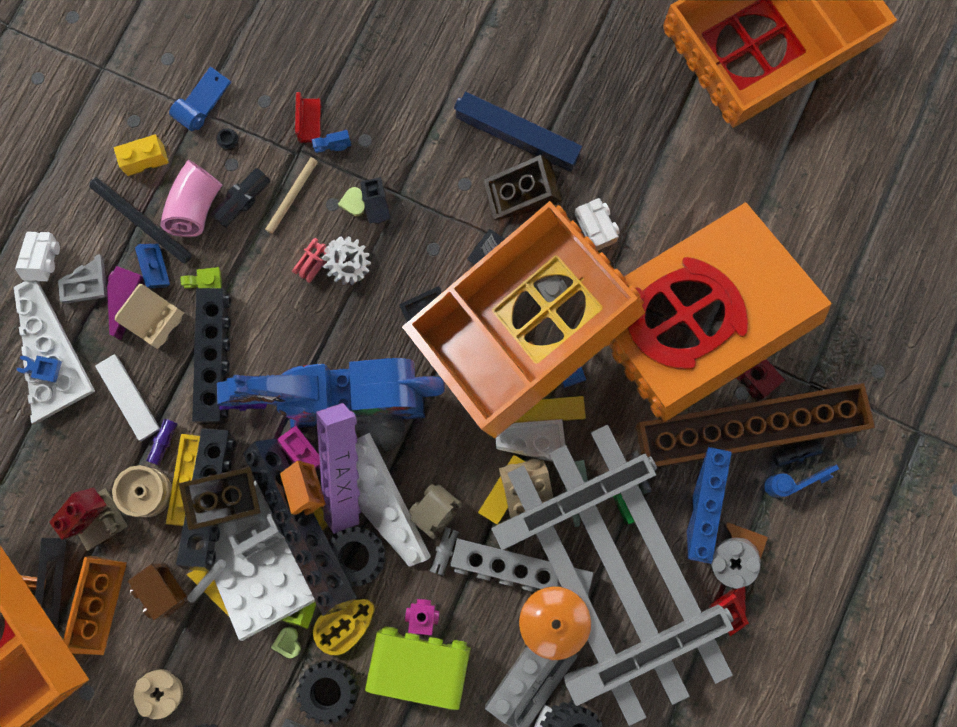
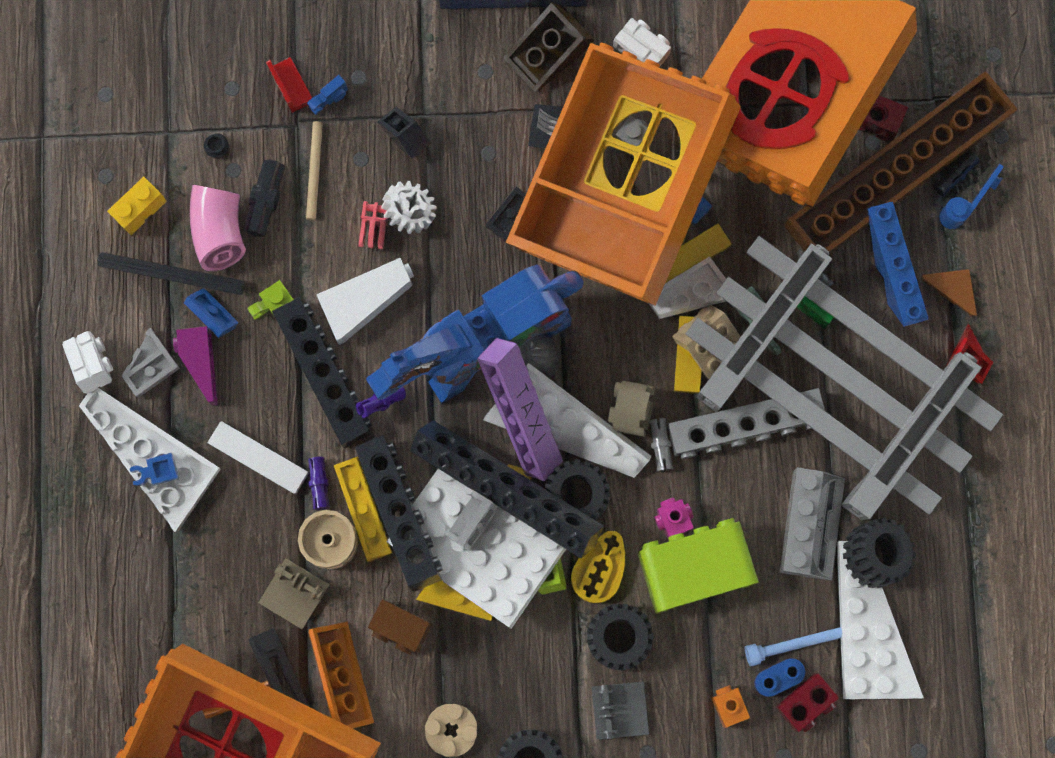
camera: 25 degrees left, 0 degrees up
(77, 513) = (277, 592): dark red brick -> none
(149, 316) = (239, 364): tan bracket -> none
(200, 101) = (166, 121): blue door -> none
(207, 580) = (443, 591): light grey bar -> none
(219, 498) = (418, 499): dark brown slope -> none
(269, 314) = (364, 297): none -> white slope
(287, 643) = (552, 614): yellowish green tile -> none
(298, 447) = (466, 421): dark pink hinge -> none
(302, 488) = (491, 450): orange hinge -> none
(353, 202) = (381, 146): yellowish green tile -> none
(537, 618) = (794, 465): orange dish -> none
(736, 576) = (960, 319): light grey brick -> none

